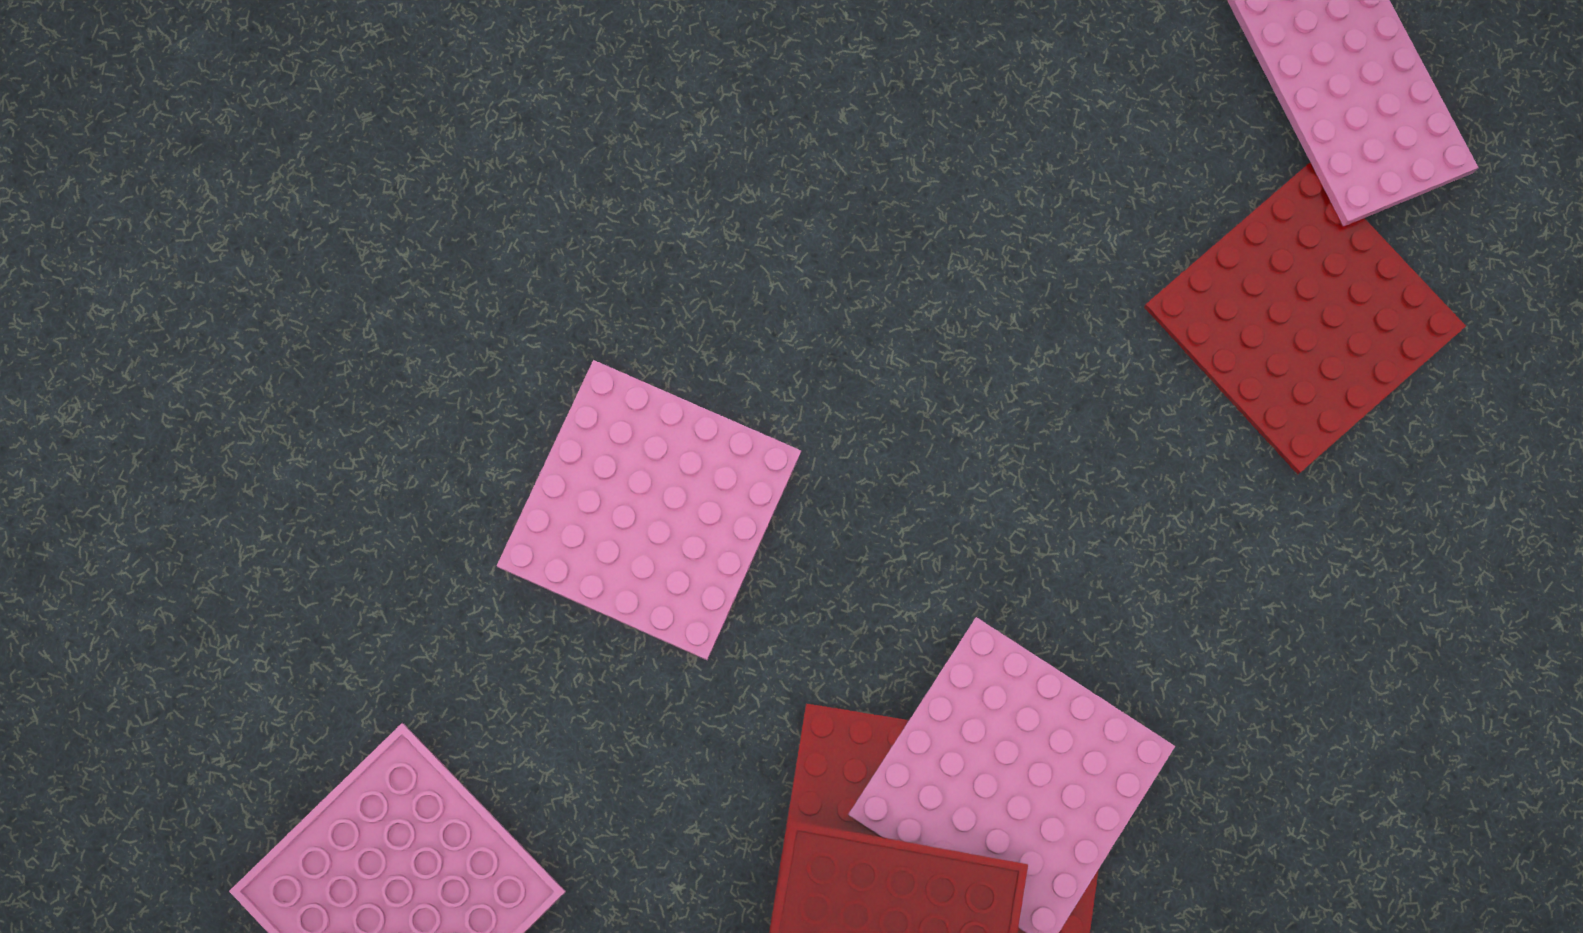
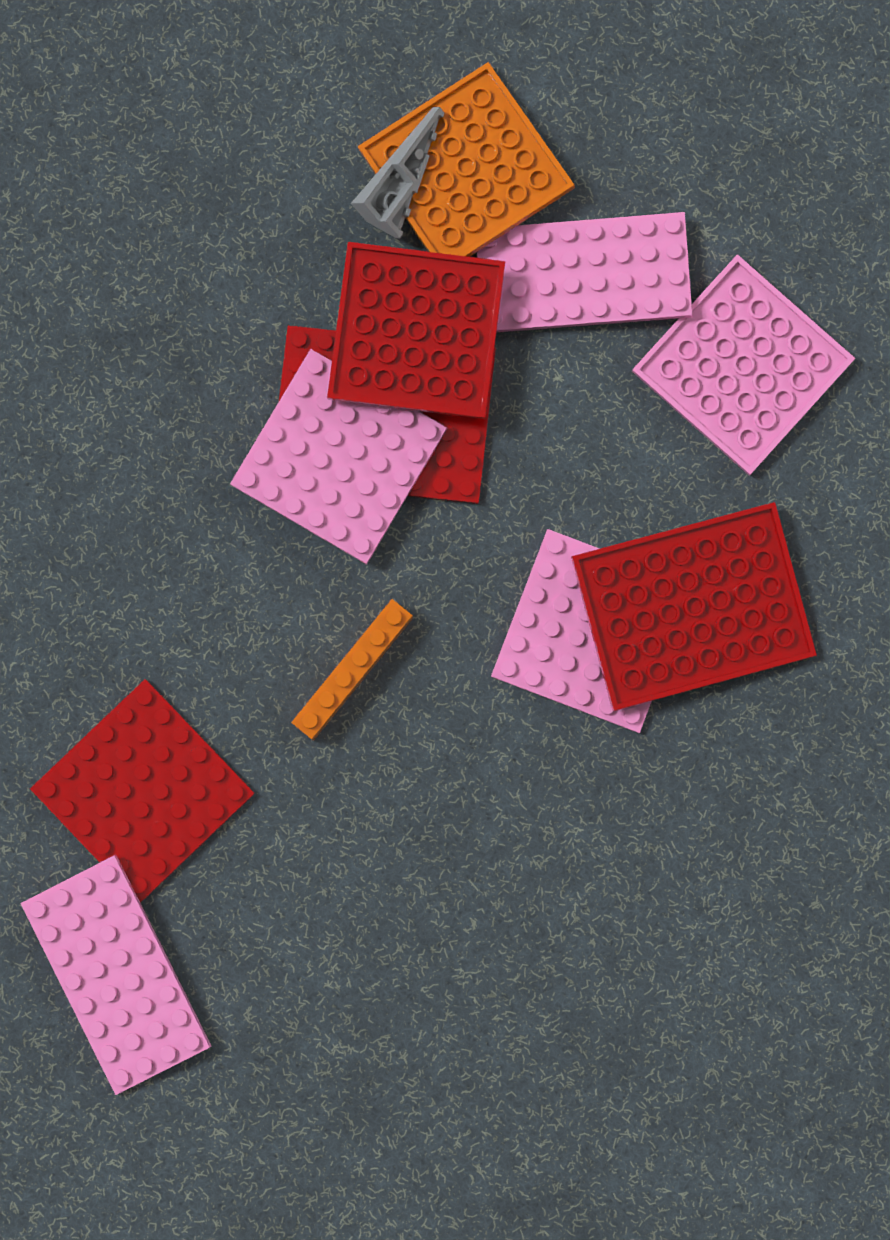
camera: 175 degrees left, 5 degrees up
(500, 532) = (693, 606): none -> red plate
(1000, 467) = (352, 669): none -> orange brick

